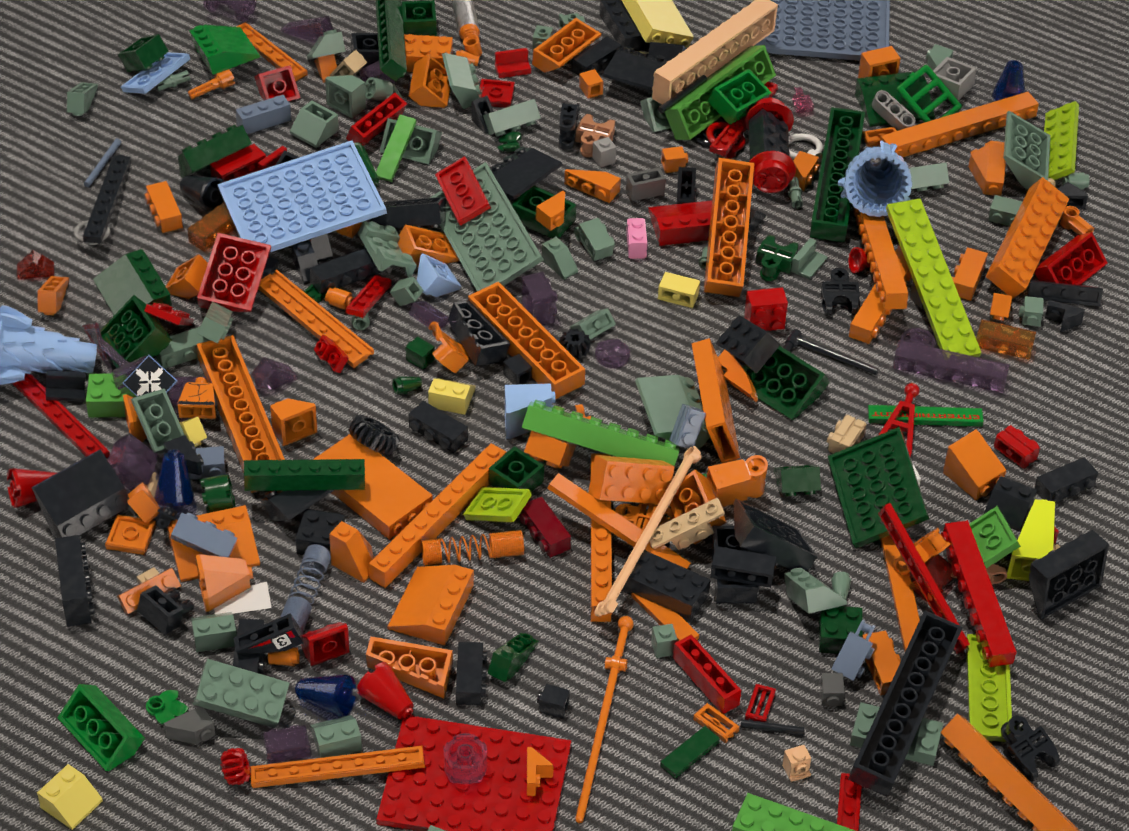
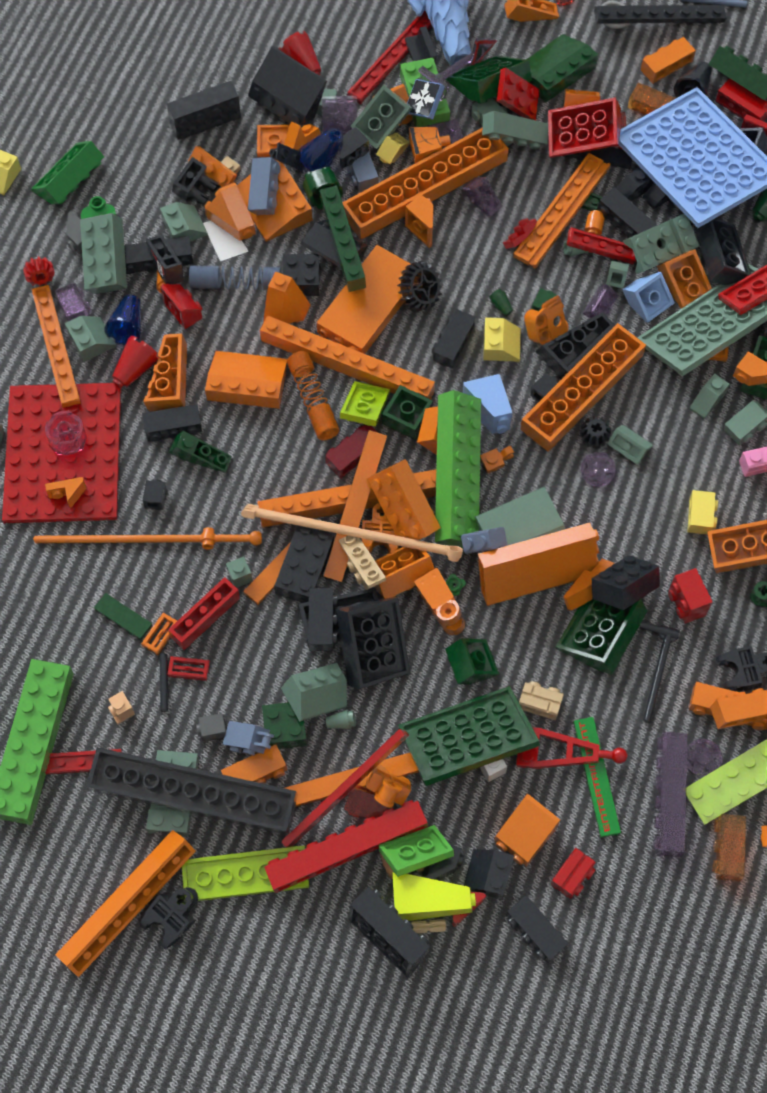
camera: 80 degrees right, 20 degrees up
(539, 298) = (639, 386): clear purple brick -> none

